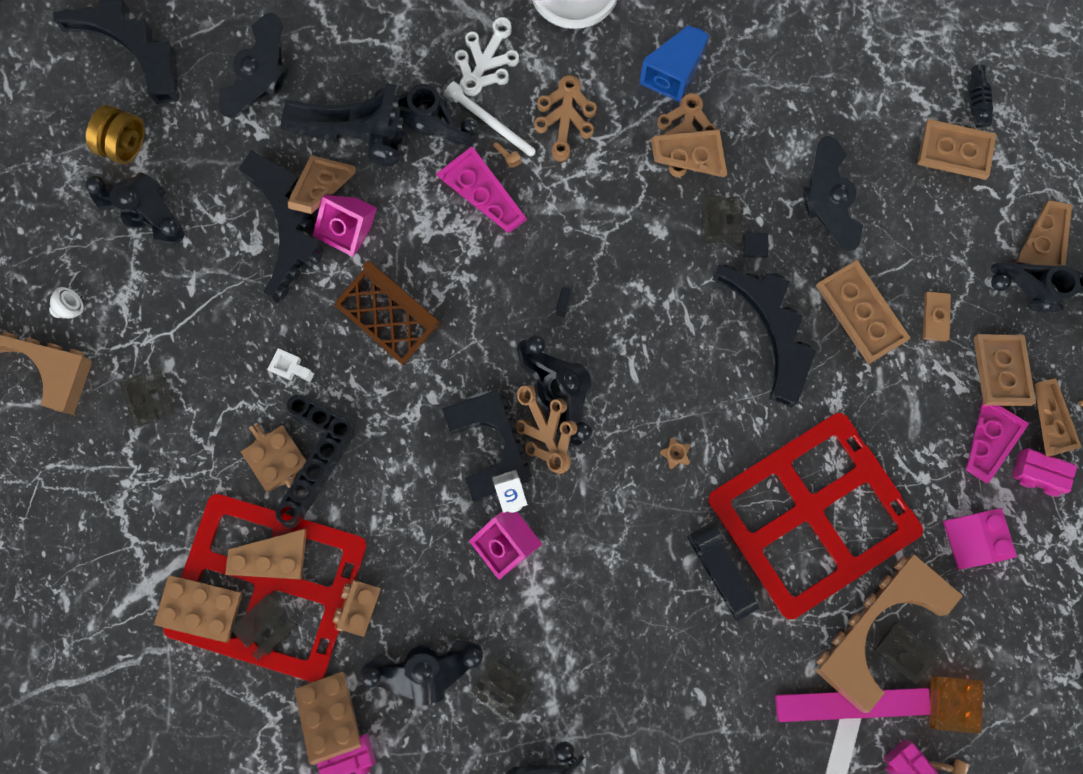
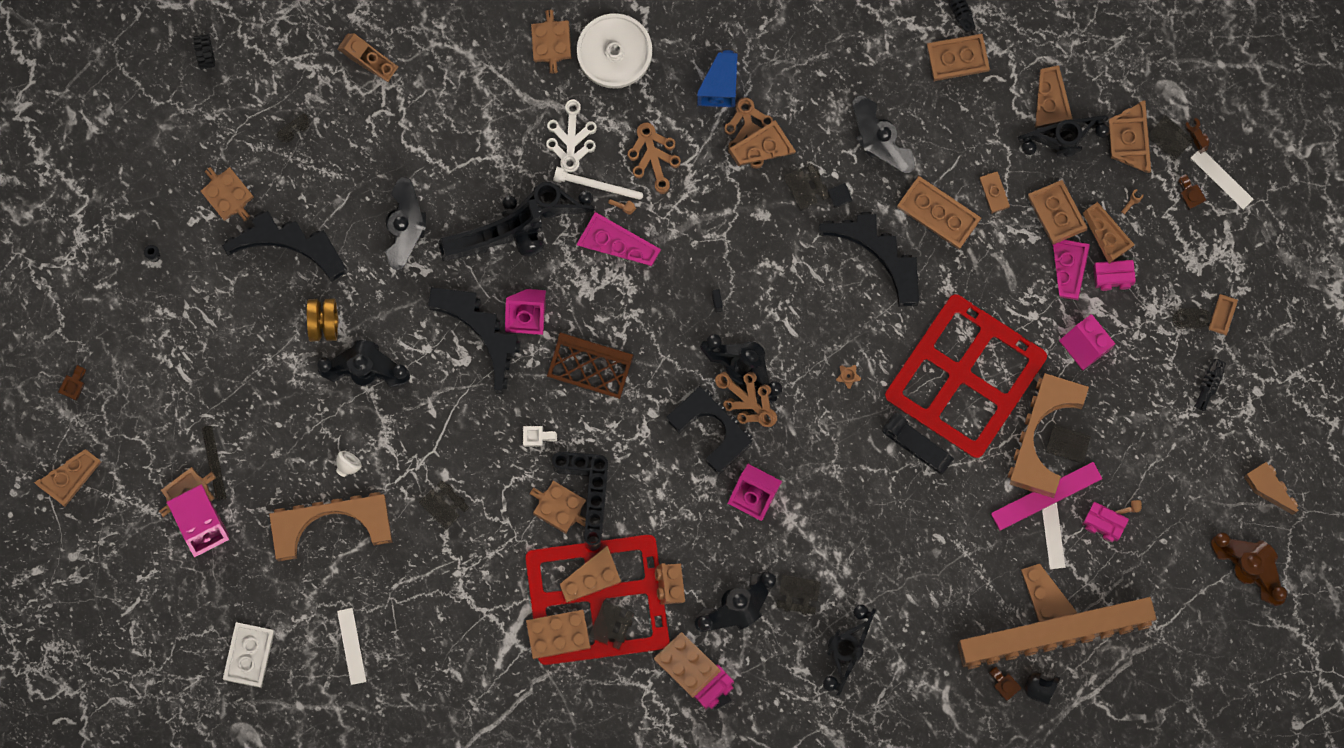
camera: 25 degrees left, 0 degrees up
(318, 179) = (493, 290): medium nougat wing -> none
(509, 491) = (743, 453): white brick -> none
(956, 704) = (1116, 464): clear orange plate -> none

